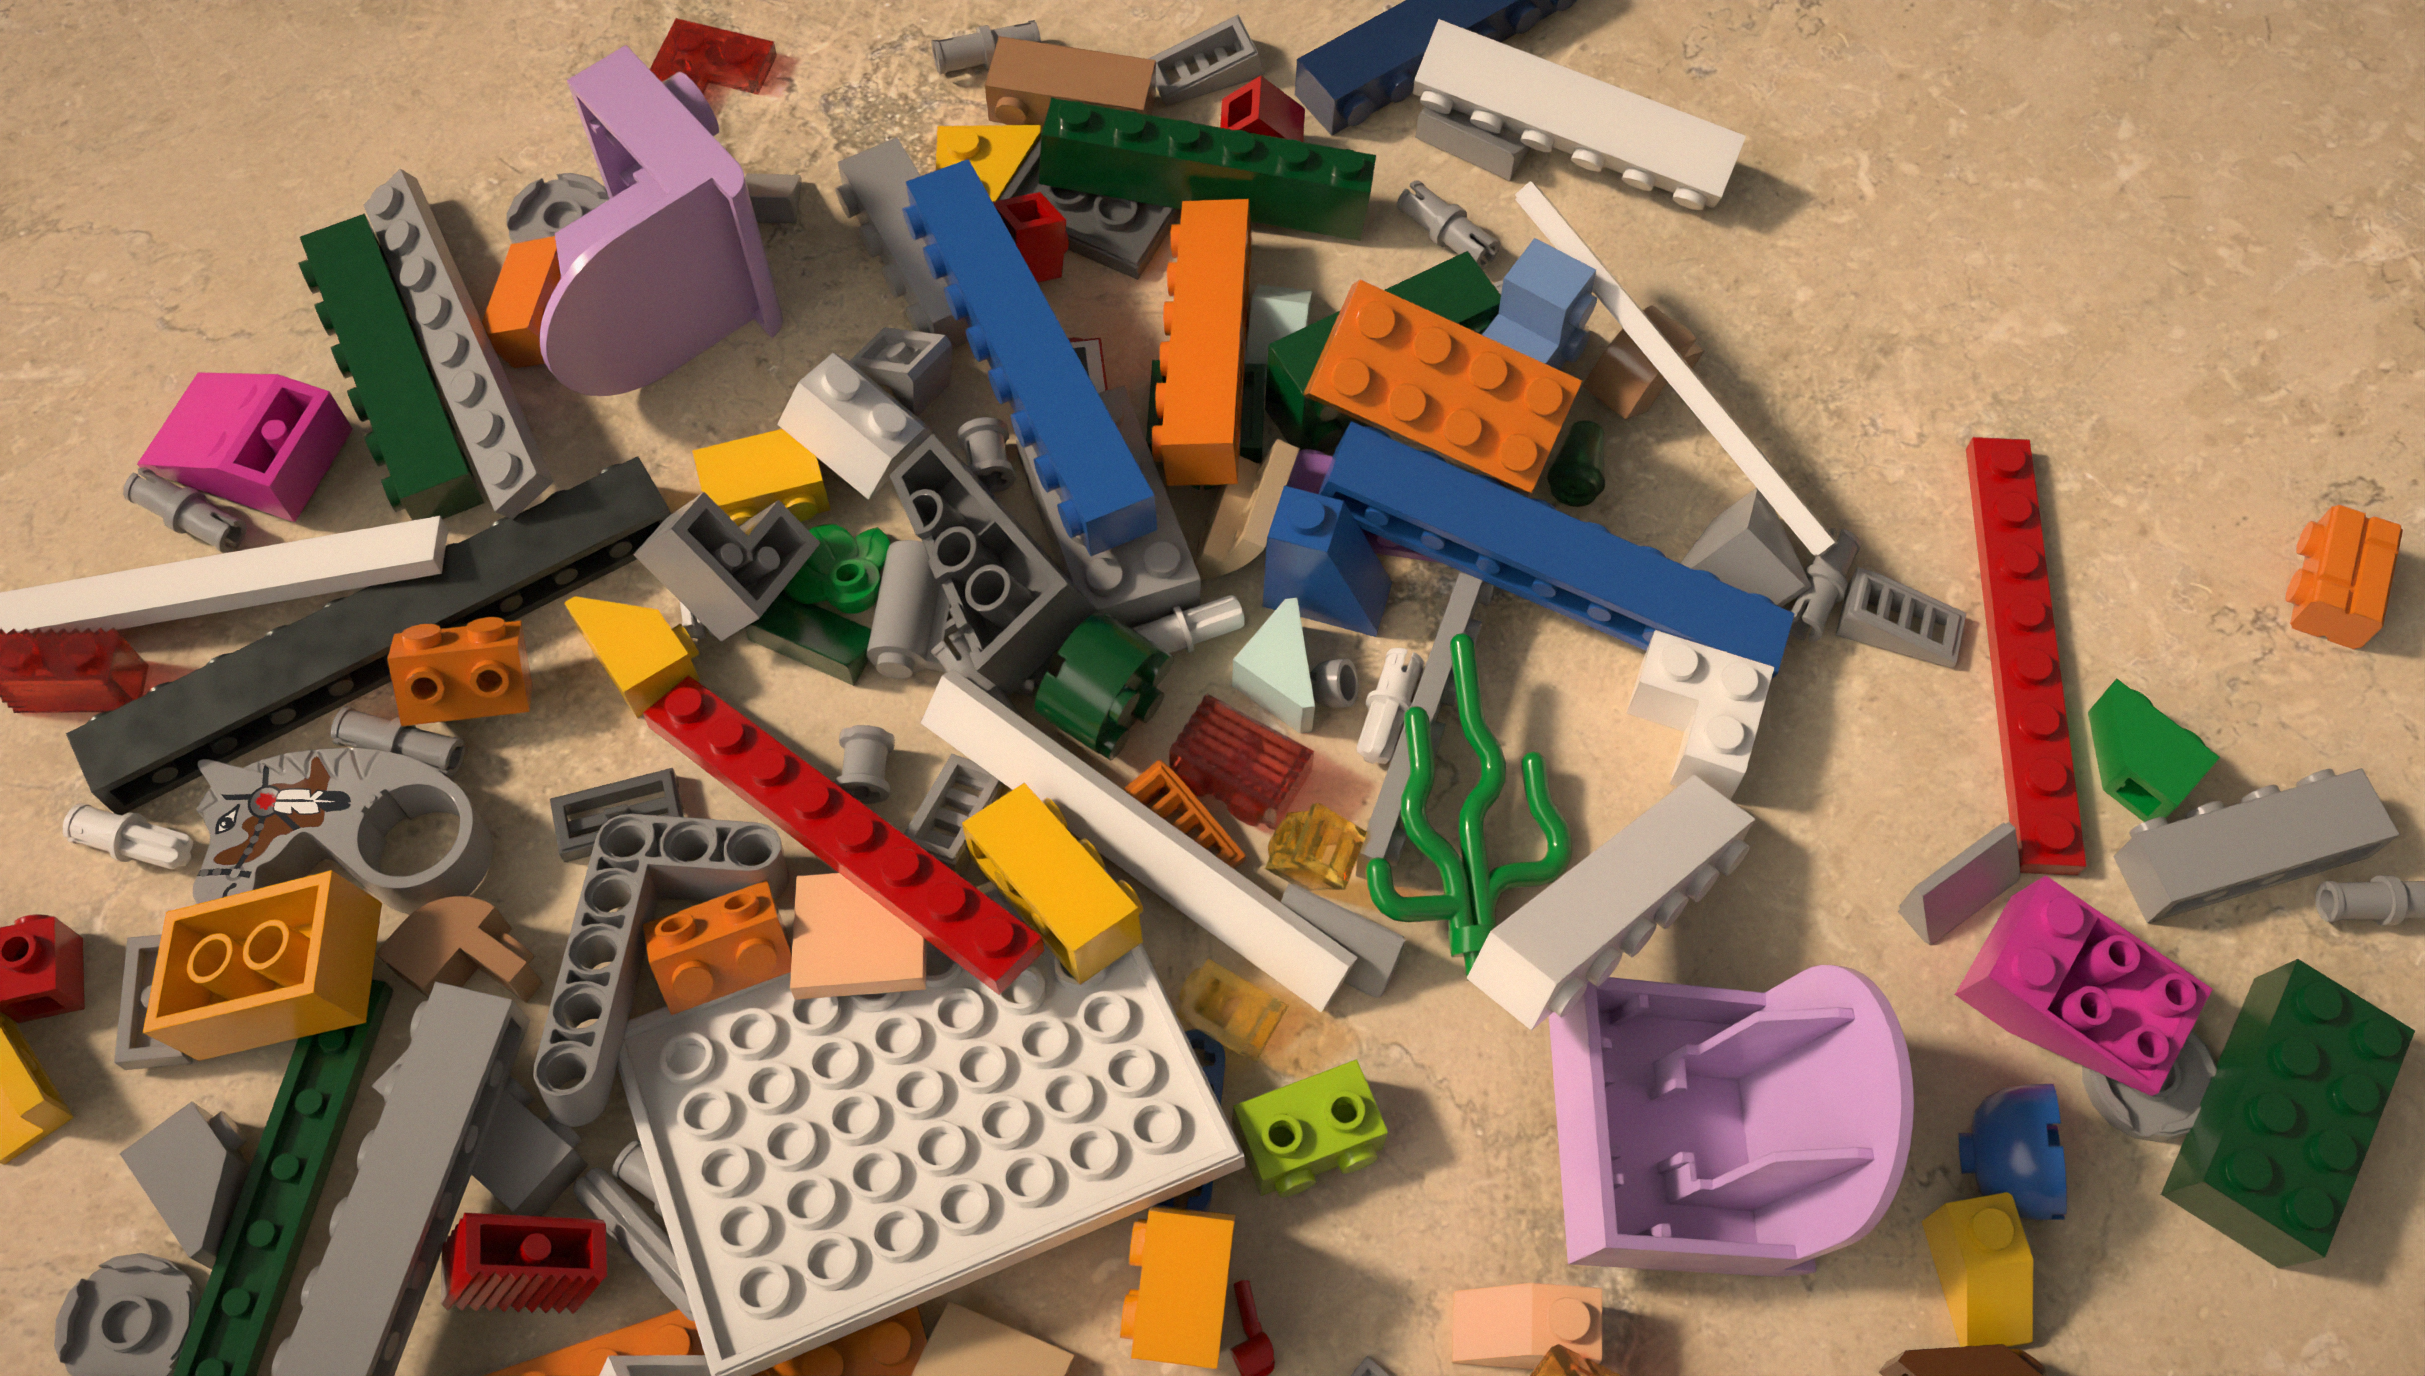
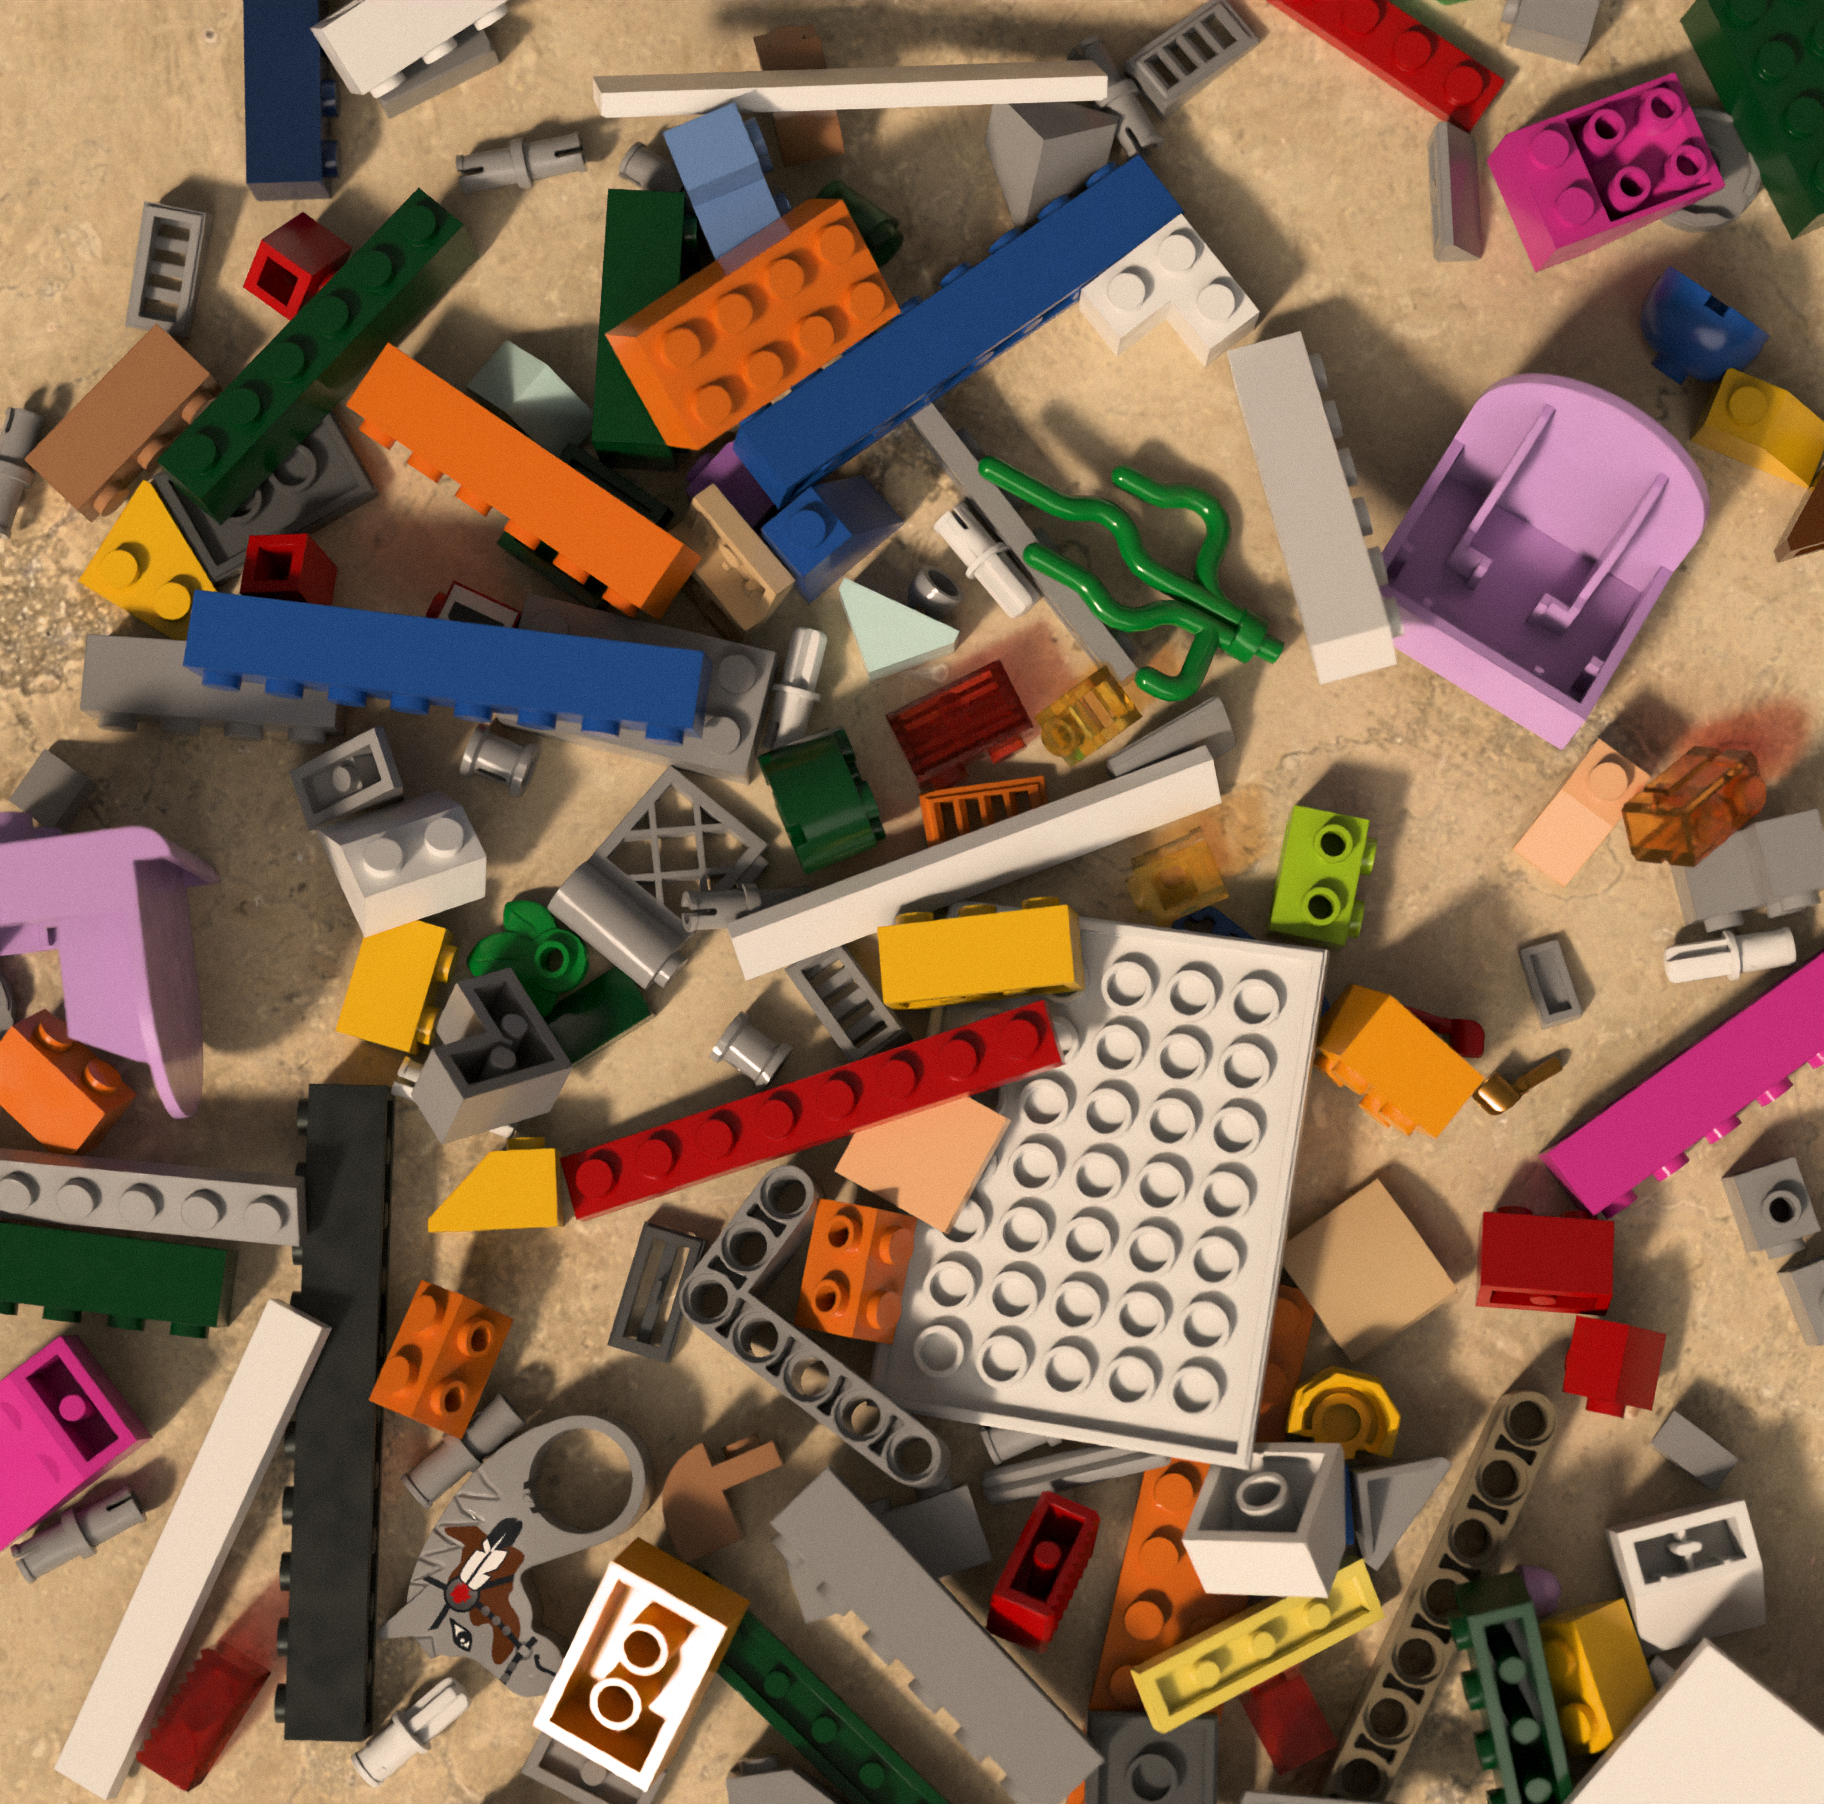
camera: 50 degrees left, 20 degrees up
(996, 576) = (654, 830): dark grey wedge -> none

